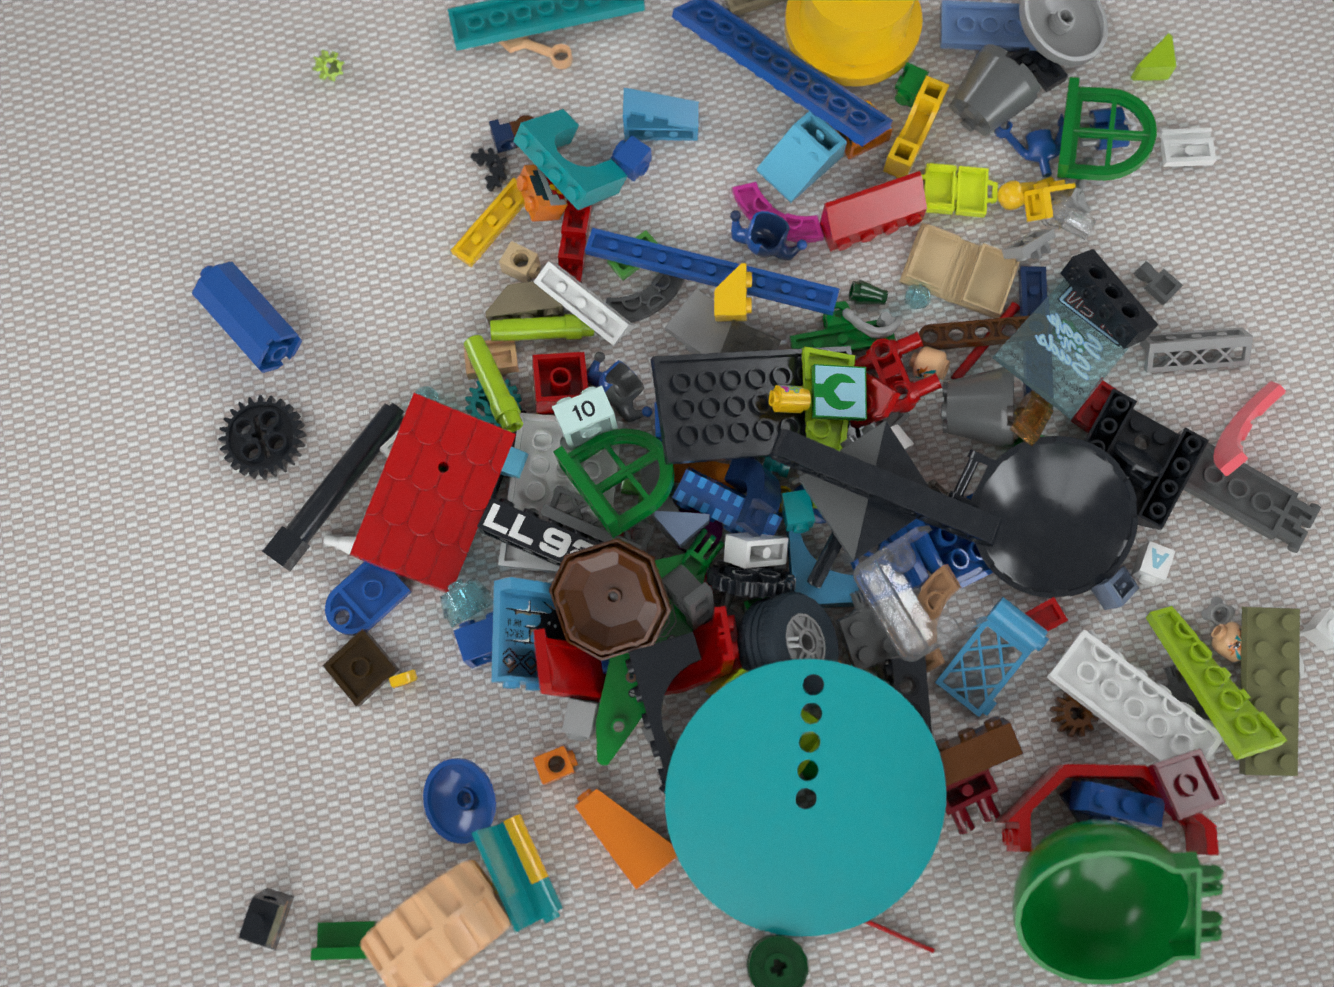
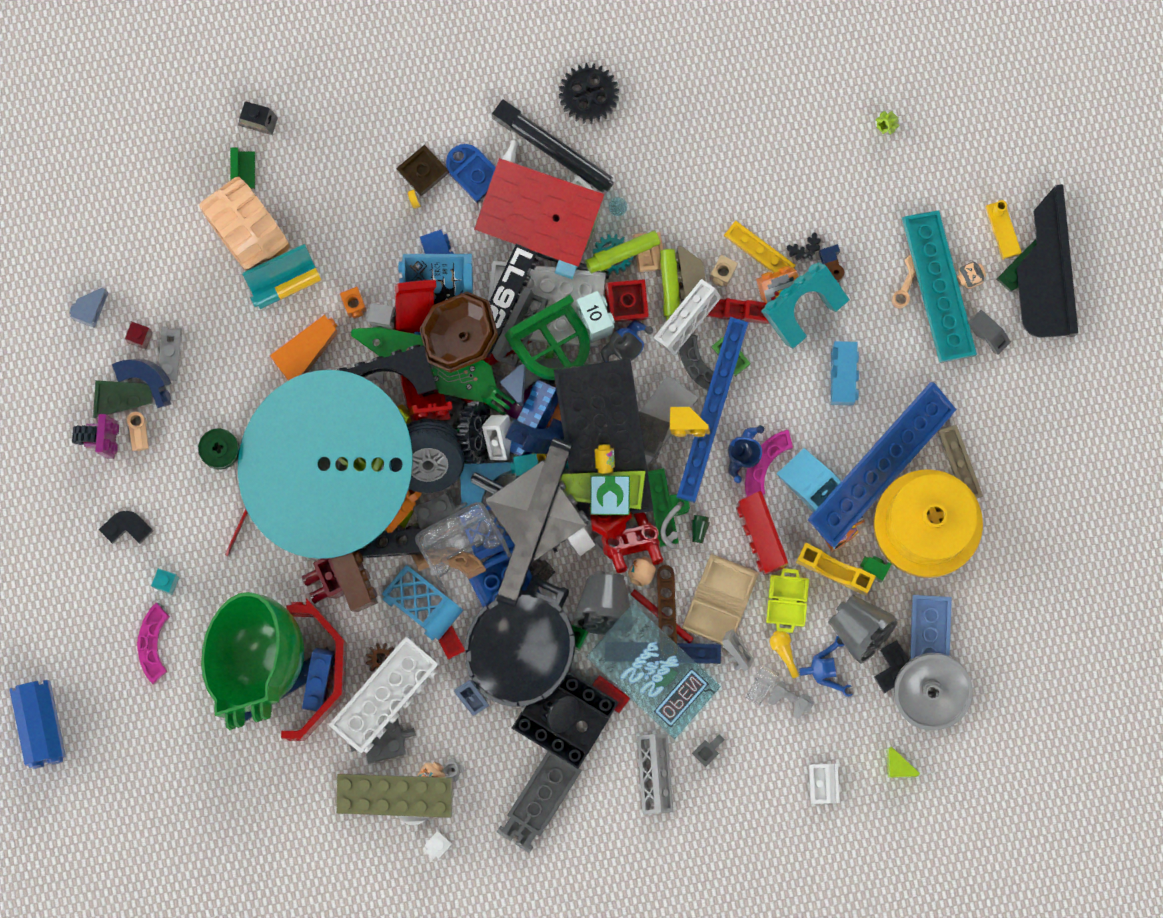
camera: 90 degrees right, 5 degrees up
(246, 316) = (678, 75): blue brick -> none
(448, 800) = (330, 238): blue dish -> none
(464, 600) = (465, 237): clear light blue cone -> none
(632, 157) = (810, 352): blue brick -> none
(689, 596) = (463, 387): dark grey tile -> none
(917, 296) = (696, 566): clear light blue plate -> none
(1031, 417) = (585, 629): clear orange slope -> none
(1038, 201) = (774, 656): yellow bracket -> none
(1072, 131) = (832, 688): green window -> none
(1100, 119) = (839, 722): blue piece -> none
(1108, 298) = (719, 695): black brick -> none
(1153, 564) = (488, 724): white brick -> none
(1186, 784) = (327, 718): plate -> none
(1228, 450) = (568, 780): coral tile -> none
(1228, 708) = (383, 759): lime wing -> none

